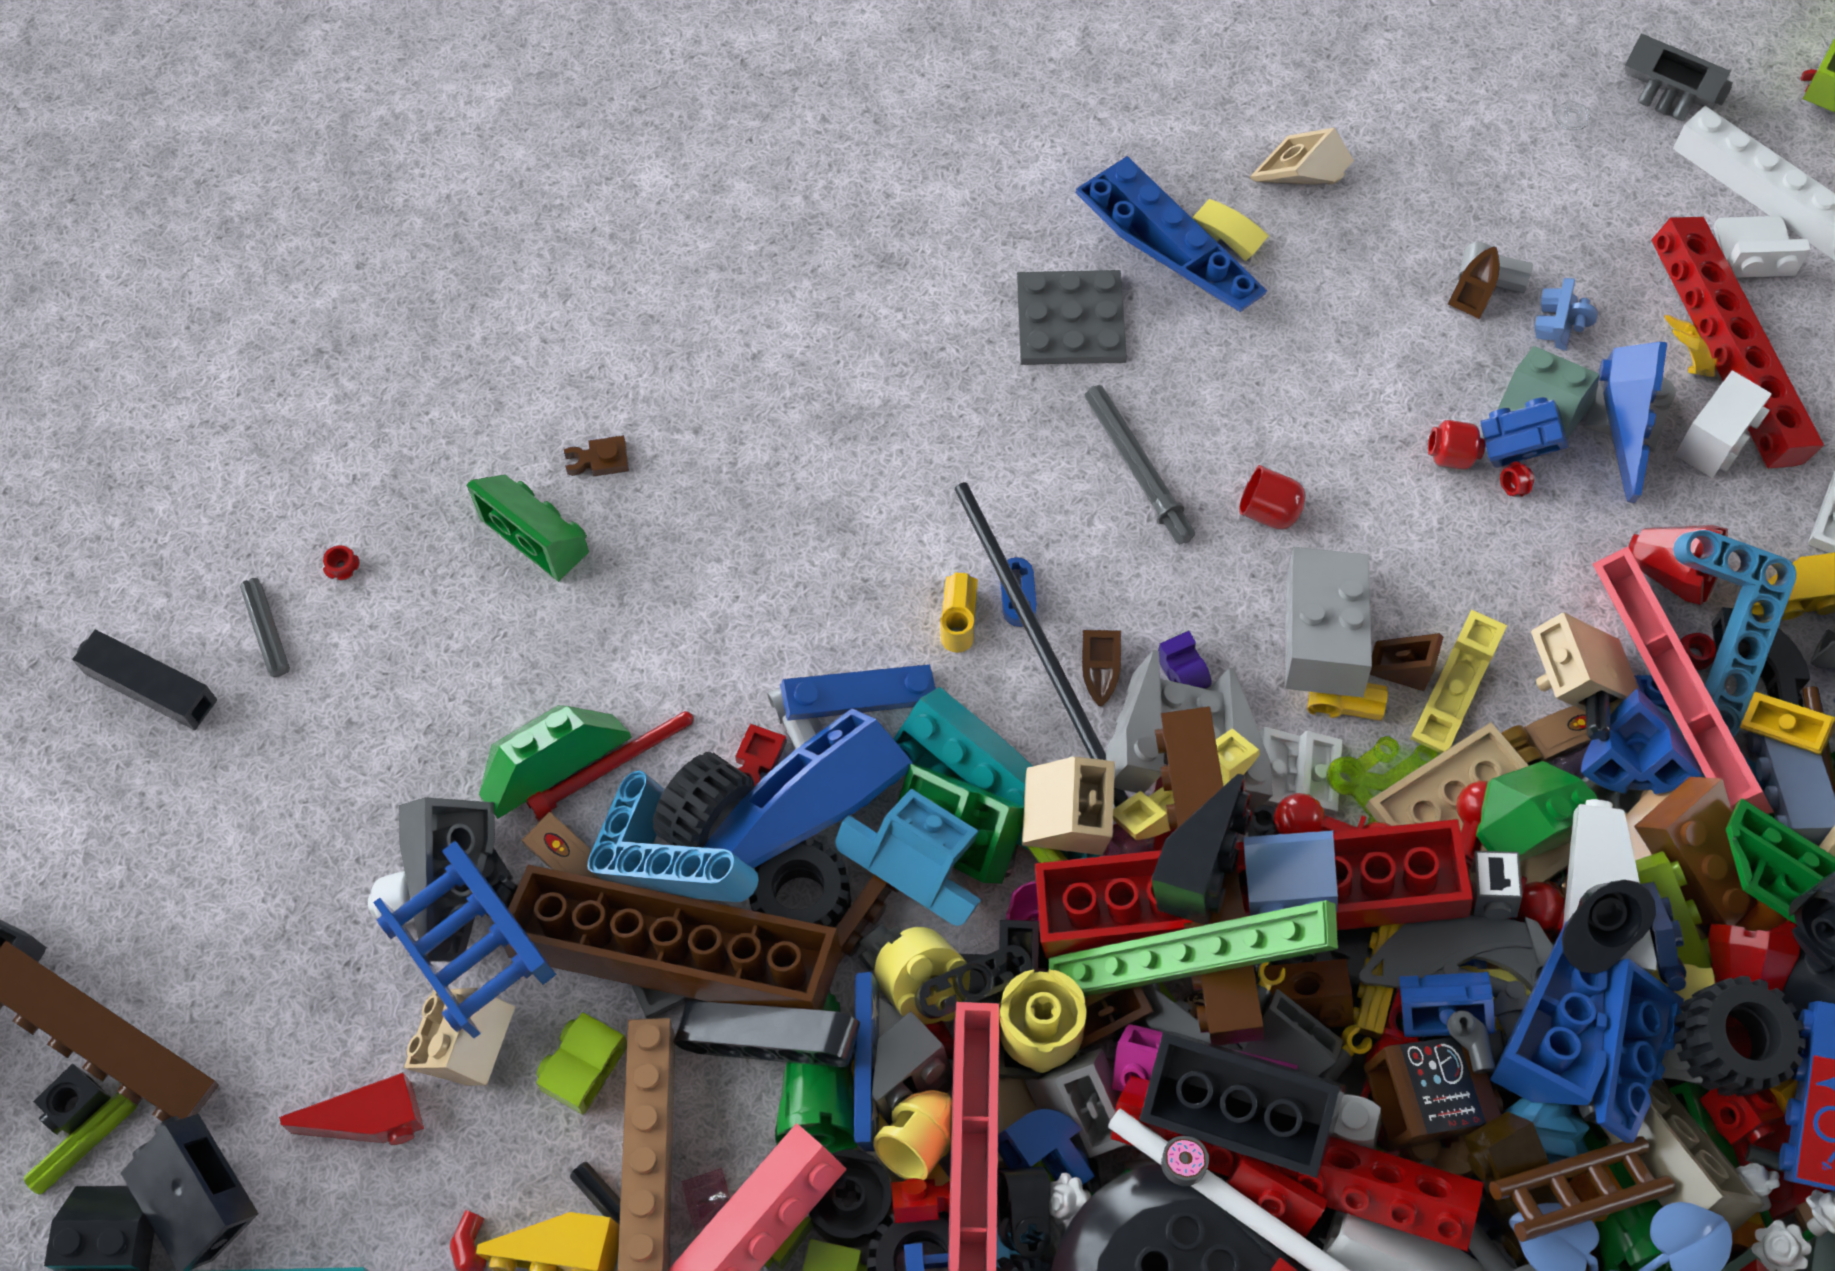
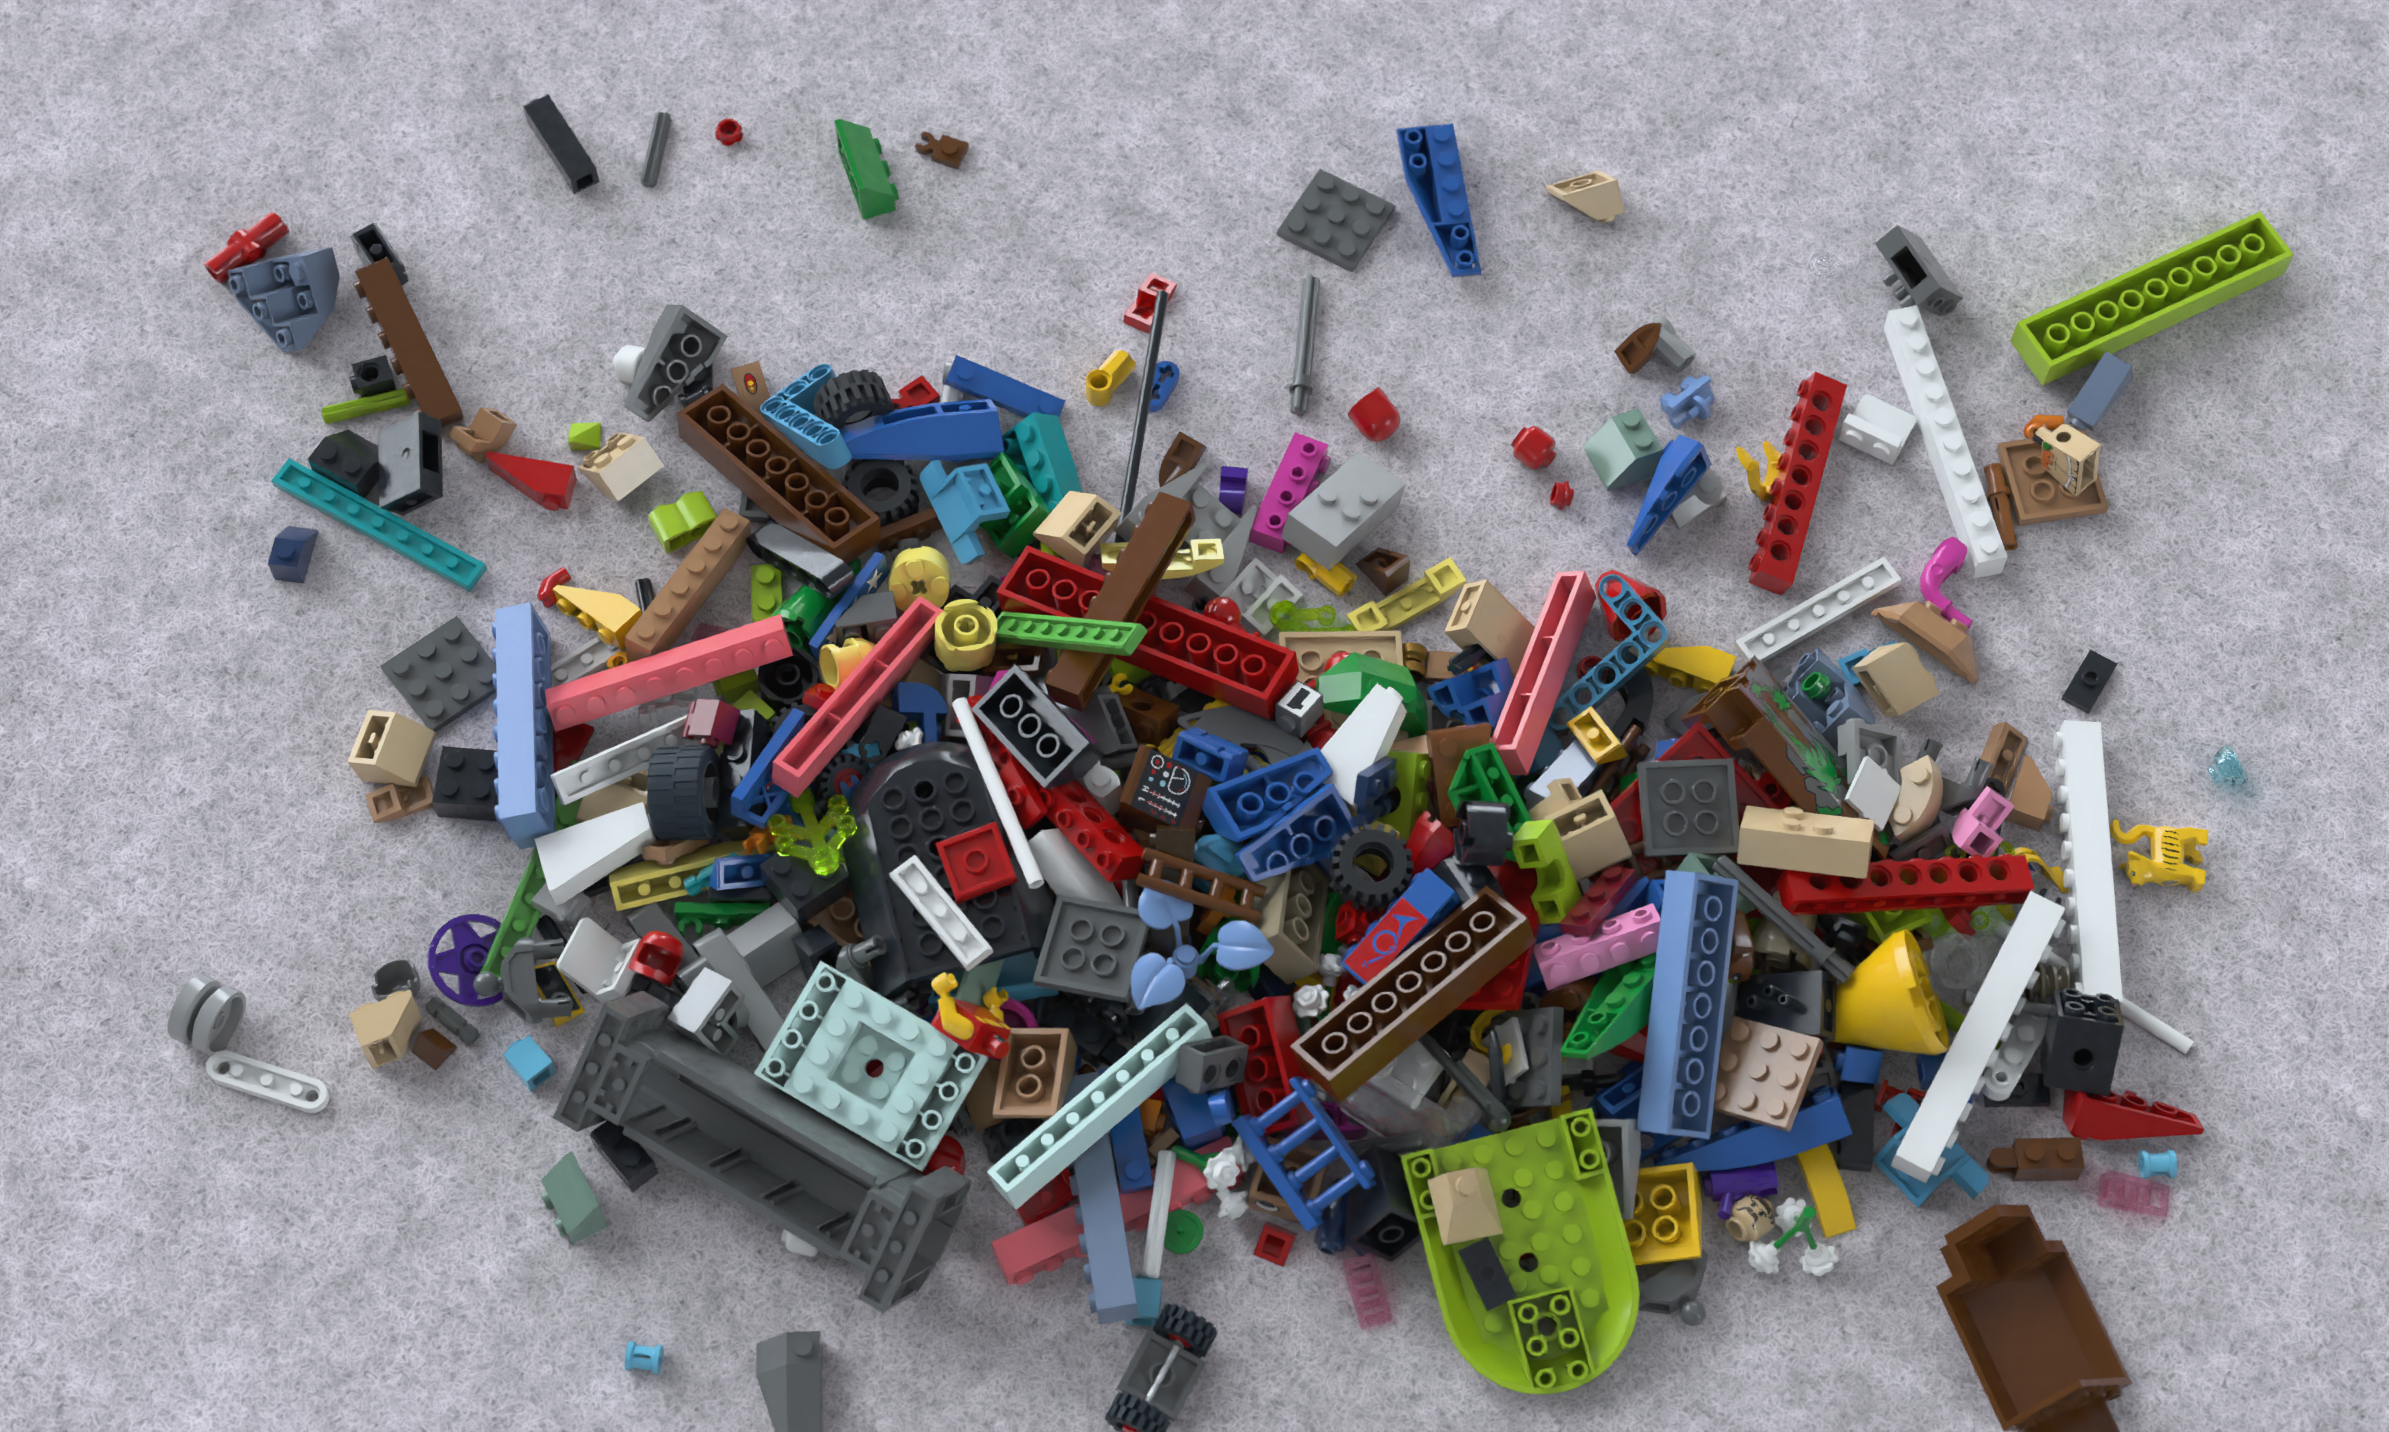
camera: 30 degrees right, 0 degrees up
(262, 1095) = (486, 433): none -> medium nougat brick
(389, 1021) = (585, 436): none -> lime slope
(503, 932) = (680, 411): blue fence -> none
(546, 754) = (782, 324): green wedge -> none
(546, 801) = (764, 354): red piece -> none
(742, 1100) = (765, 591): none -> lime hinge
(941, 506) = (1141, 311): none -> red slope
(941, 983) = (935, 584): black beam -> none
(1184, 1160) = (978, 741): tile -> none
(1200, 853) = (1110, 574): black slope -> none
(1231, 227) = (1495, 212): light yellow slope -> none
(1246, 630) = (1290, 486): none -> dark pink brick
(1290, 870) = (1169, 622): medium blue slope -> none
(1475, 1038) = (1205, 775): dark grey arm -> none
(1524, 432) = (1583, 463): blue brick -> none
(1607, 924) = (1330, 755): black piece -> none
(1721, 426) = (1725, 527): white brick -> none

